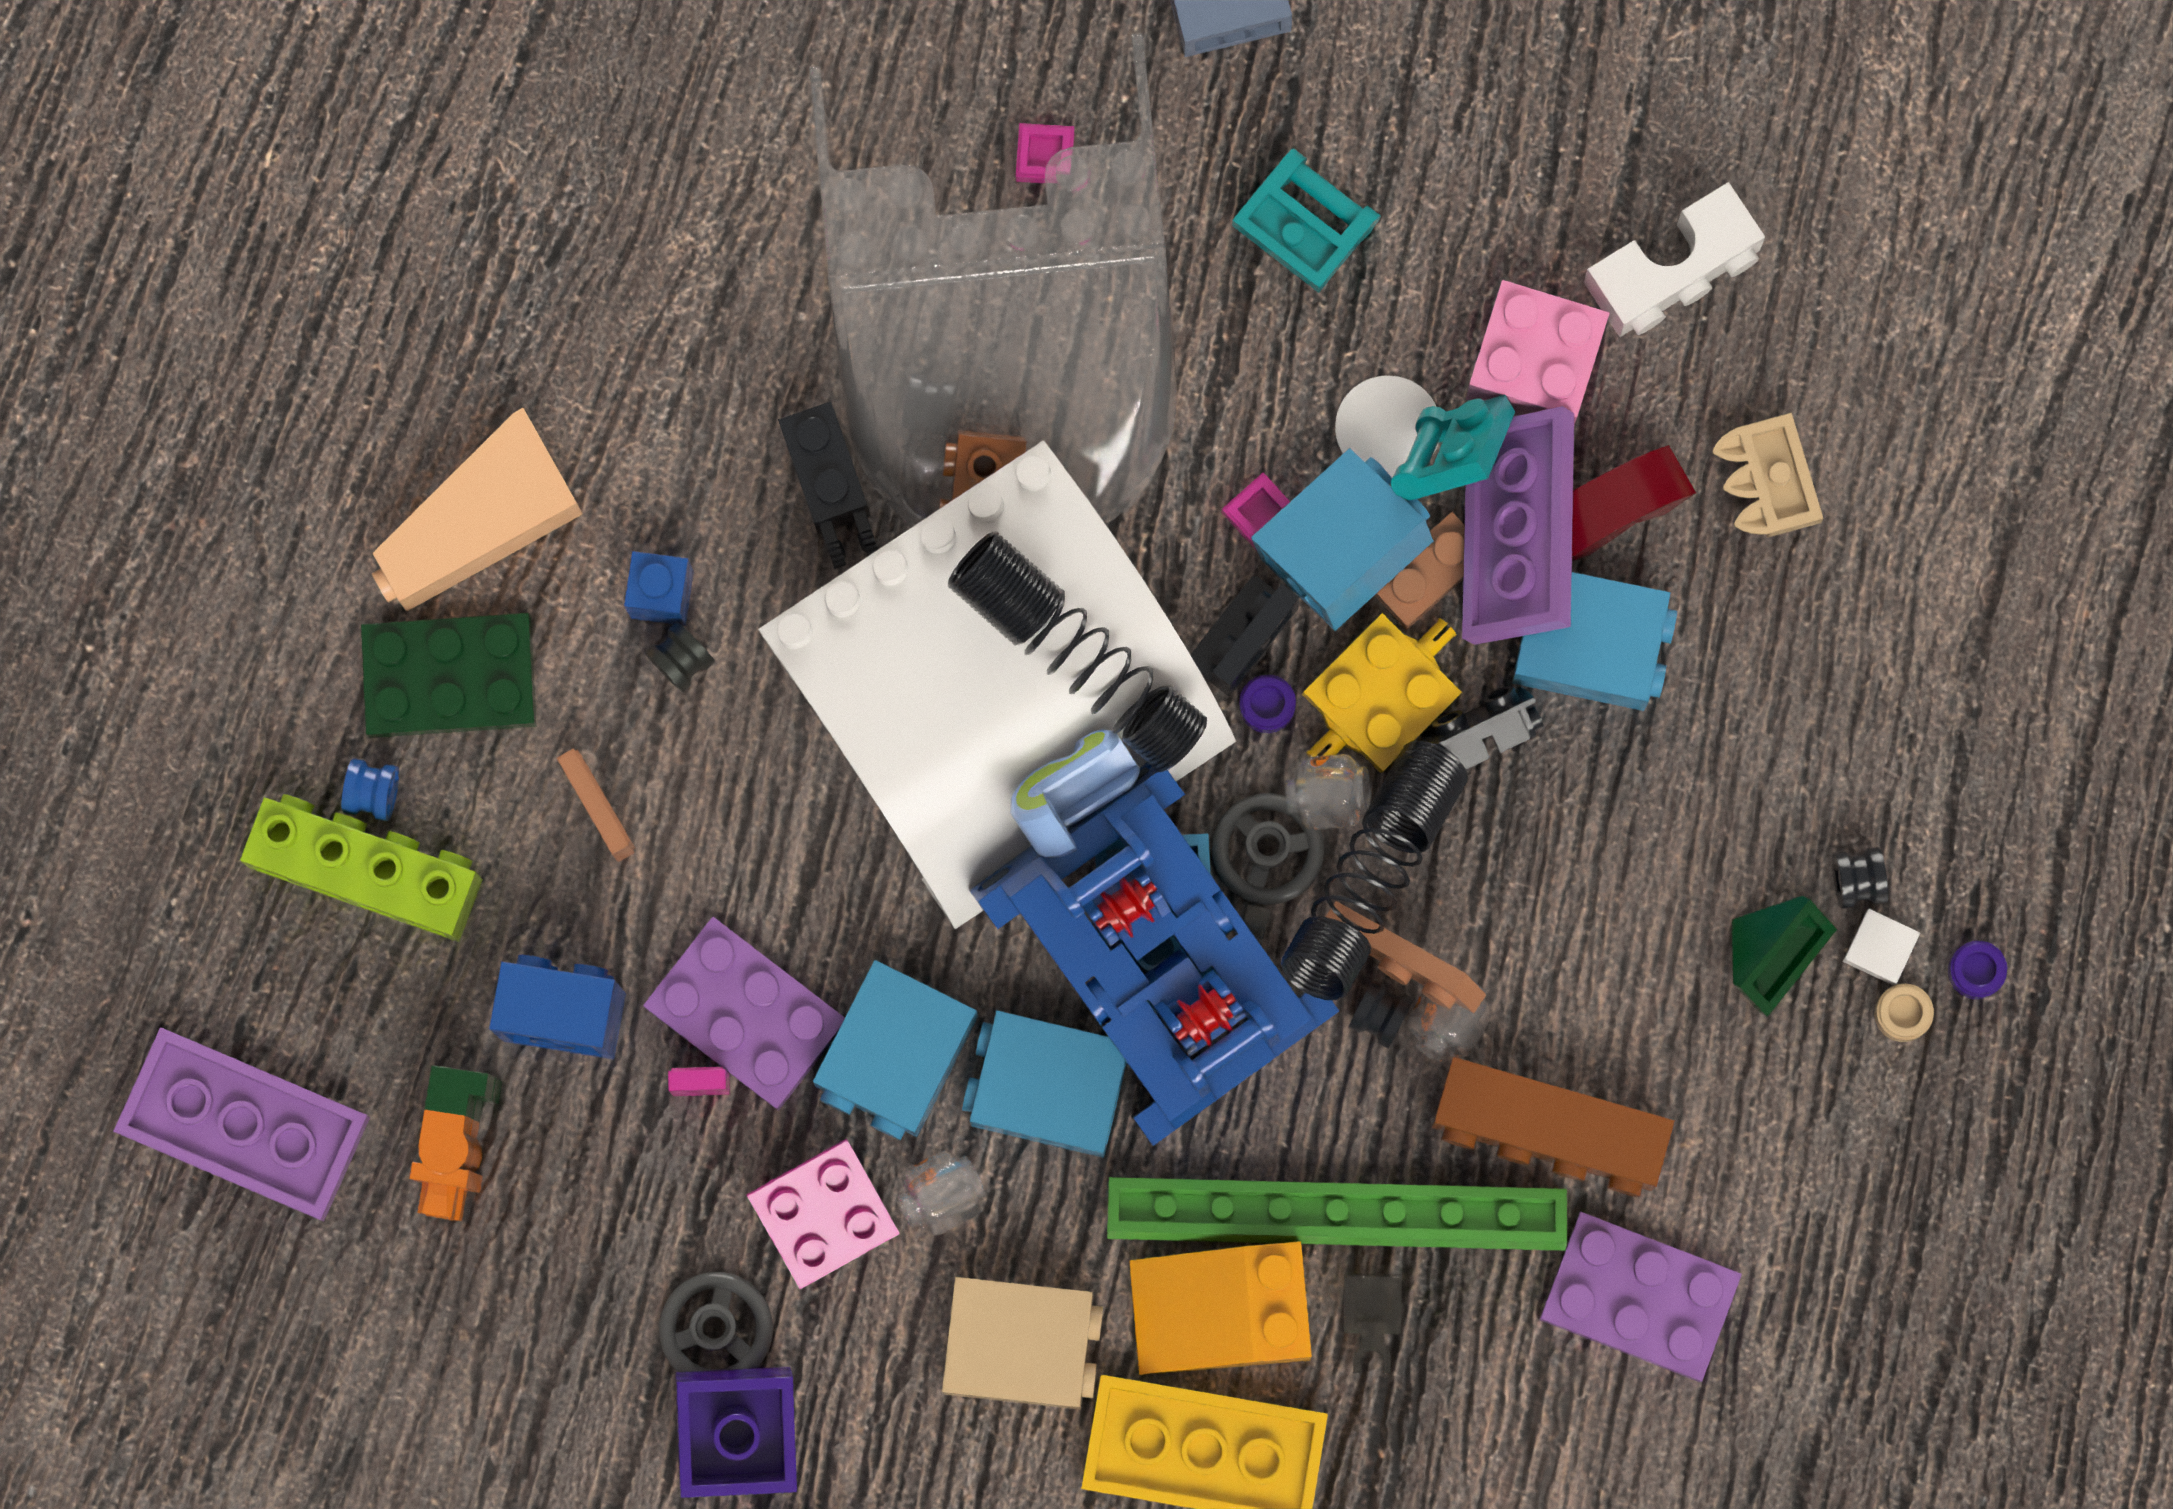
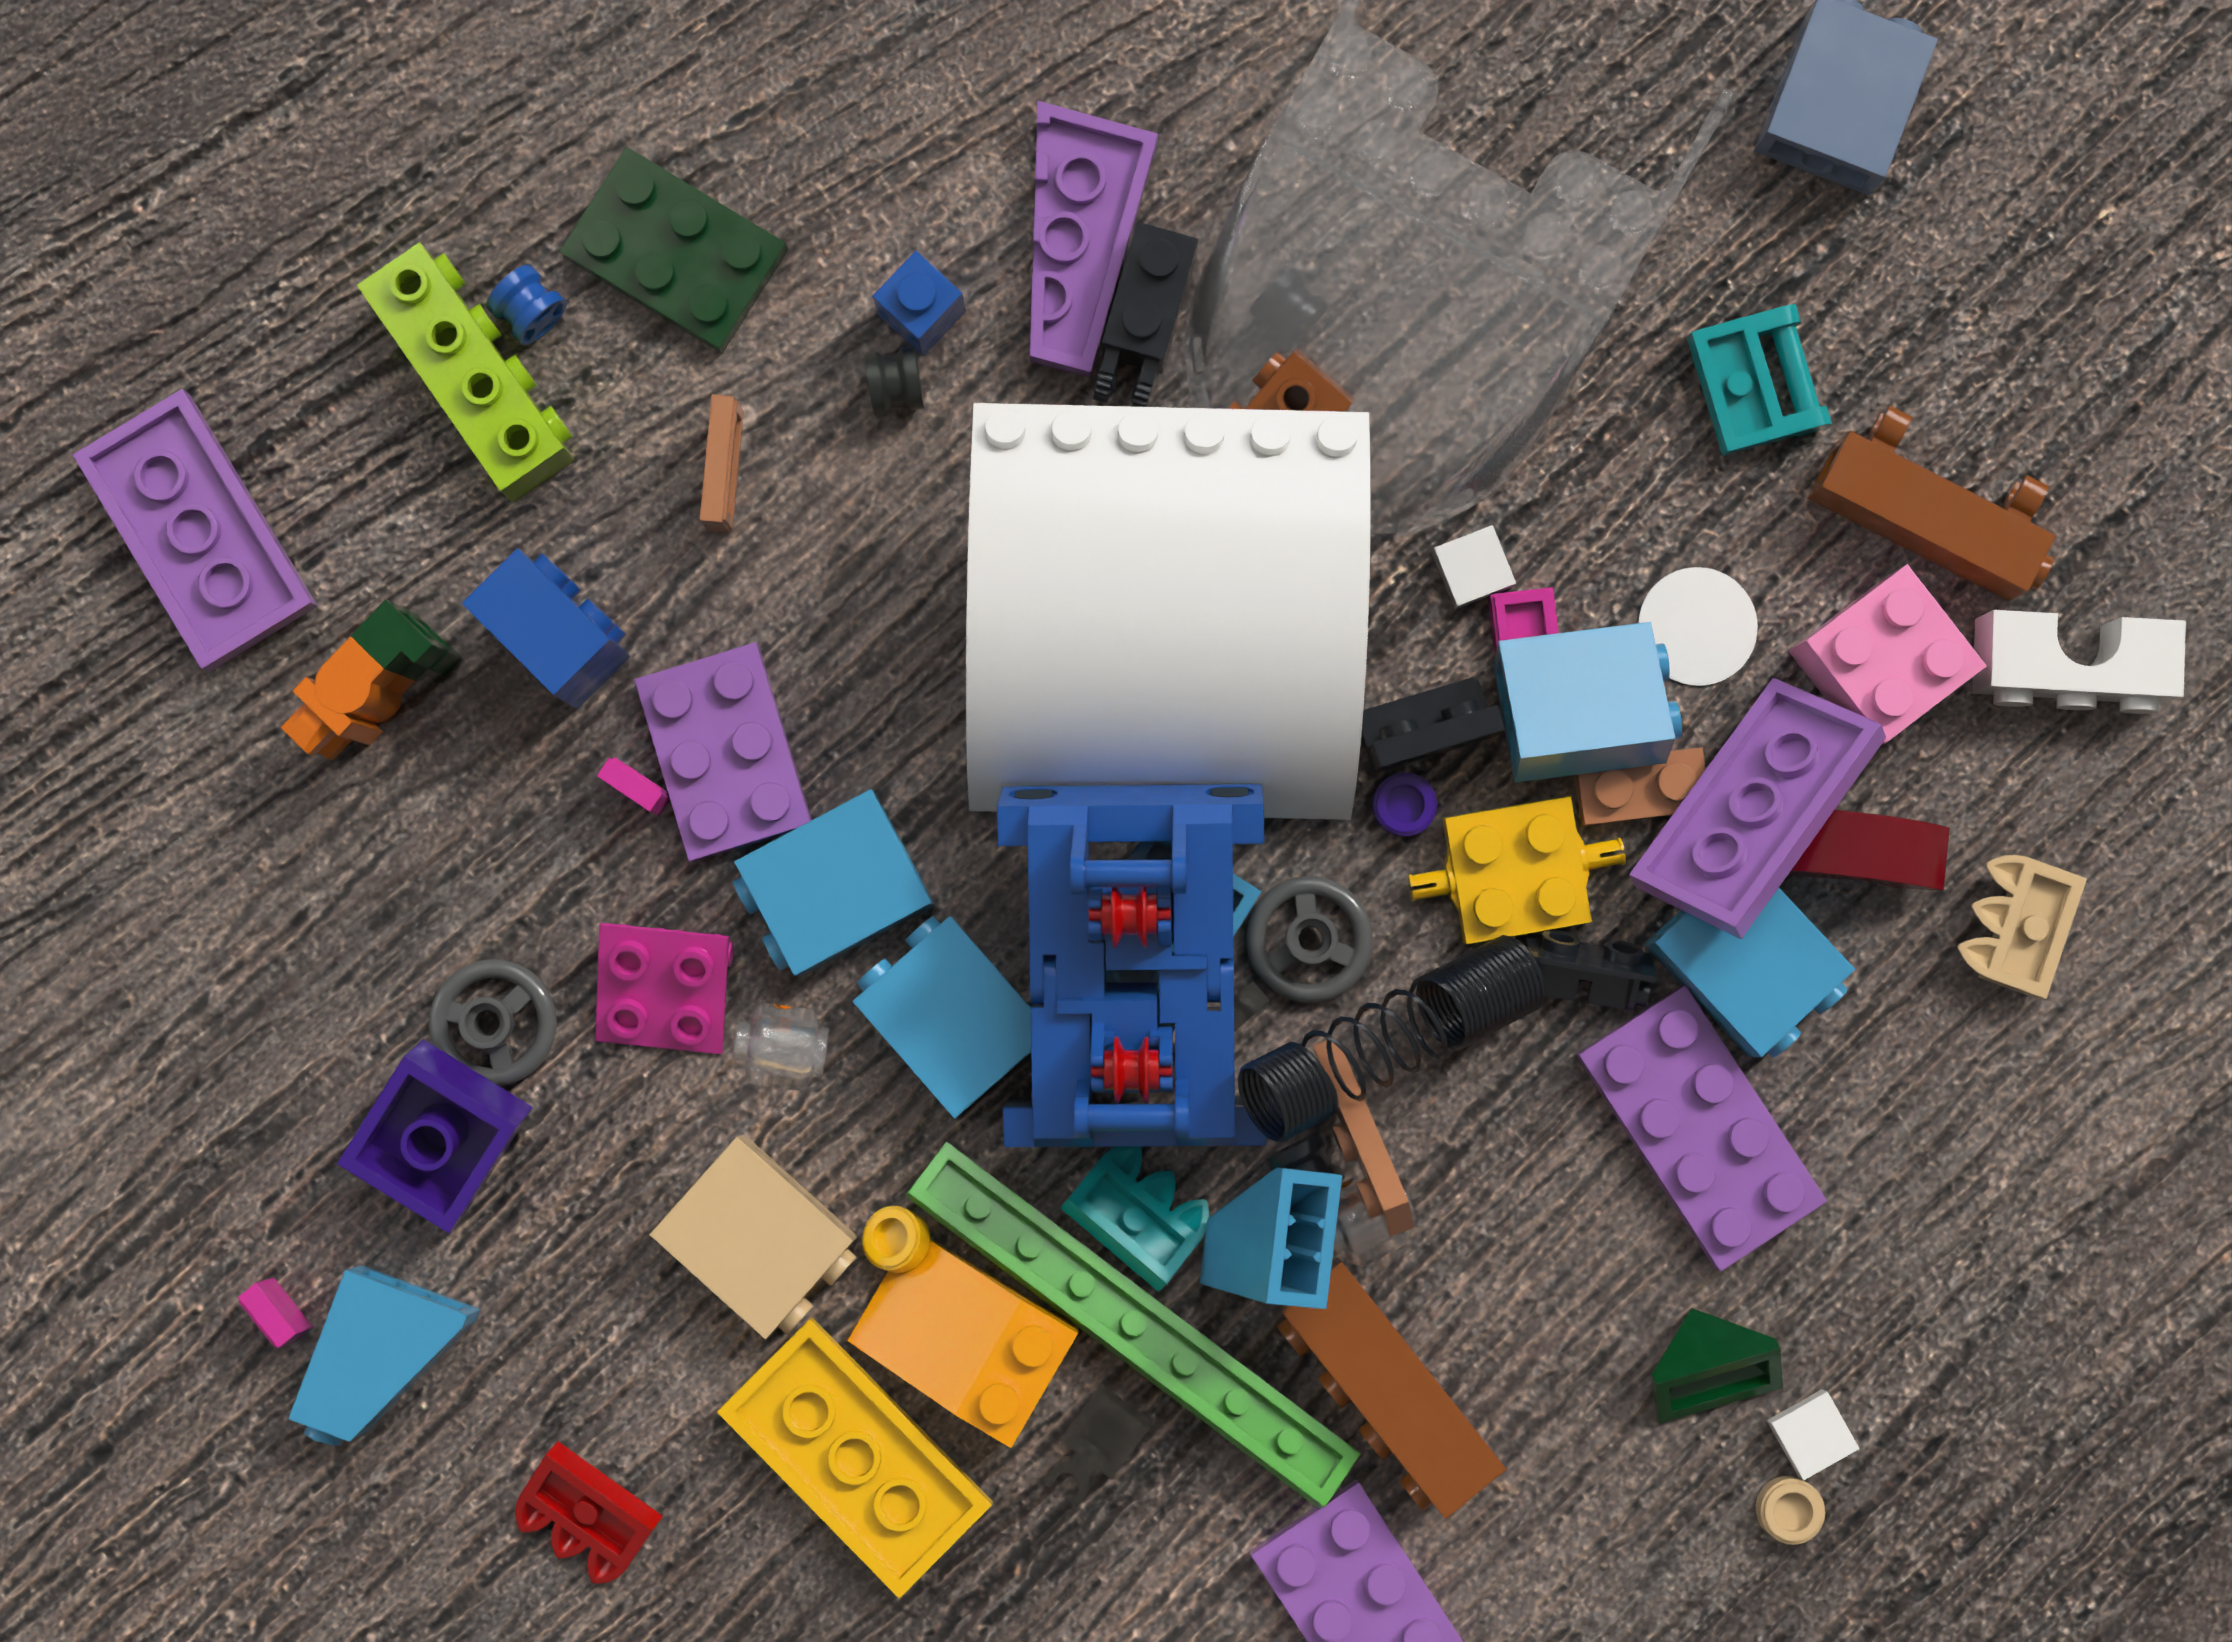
camera: 25 degrees right, 5 degrees up
(477, 516) = (801, 120): light nougat slope -> none
(732, 441) = (1085, 212): none -> medium lavender wing
(1022, 599) = (1236, 550): black piece -> none
(1037, 146) = (1555, 136): dark pink tile -> none
(1071, 790) = (1159, 763): light blue animal -> none
(1122, 1274) = (896, 1239): none -> yellow tile
(1195, 498) = (1473, 567): none -> white tile
(1284, 1134) = (1136, 1217): none -> teal plate
(1329, 792) = (1402, 929): clear head -> none
(1392, 1071) = (1276, 1239): none -> dark azure slope
(1468, 450) = (1762, 703): teal plate -> none
(1498, 230) = (1933, 515): none -> dark orange brick
(1645, 785) = (1701, 1128): none -> medium lavender plate
(1860, 877) = (1840, 1358): black wheel -> none
(1977, 970) = (1887, 1519): dark purple tile -> none

